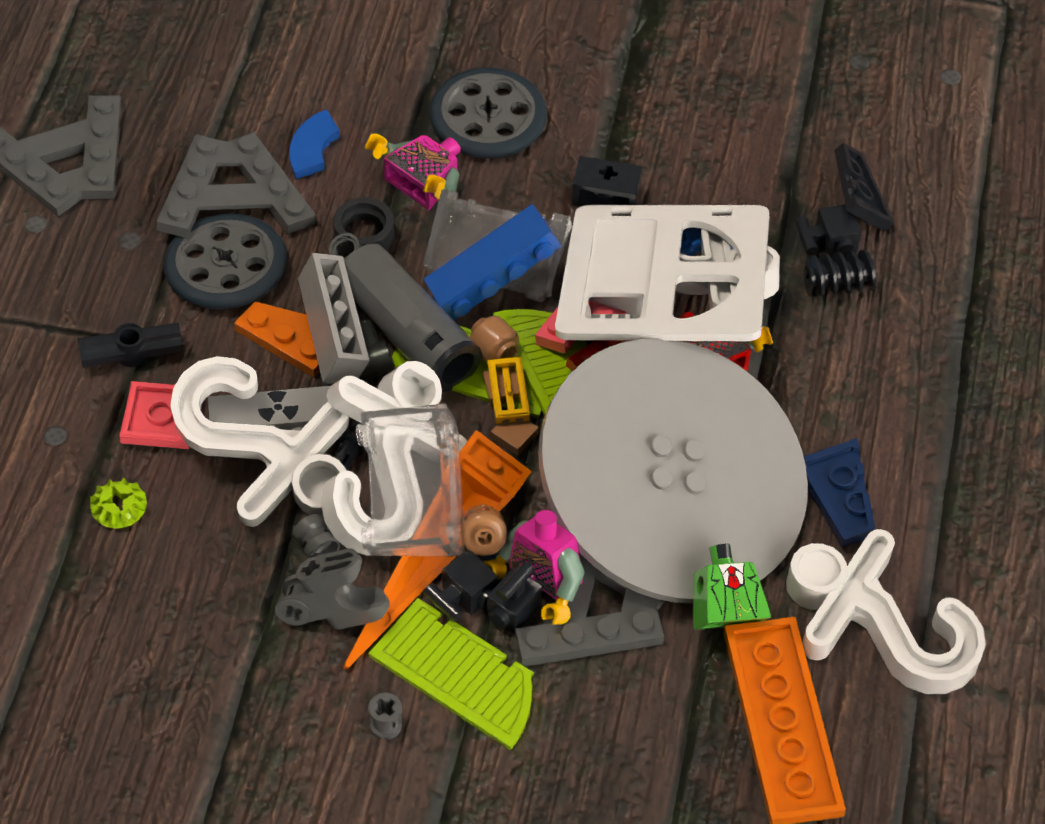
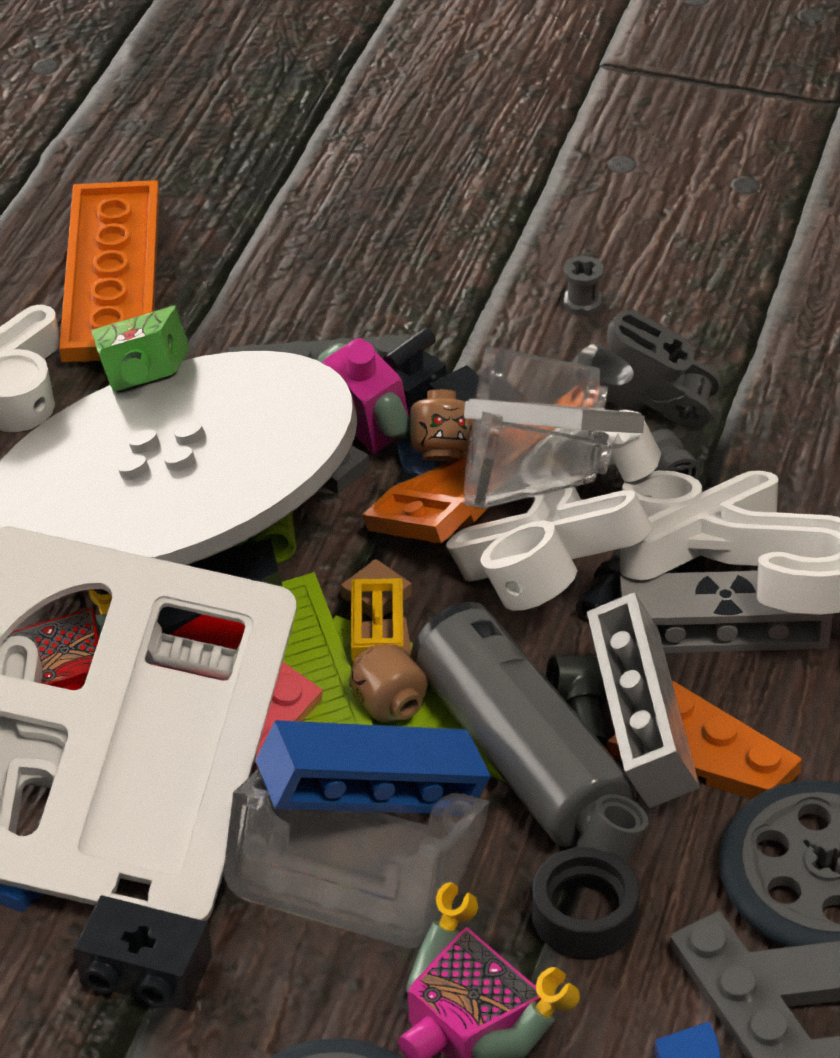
camera: 170 degrees left, 10 degrees down
(398, 473) = (557, 416): none -> light grey tile
(458, 672) = (469, 321): lime piece -> none

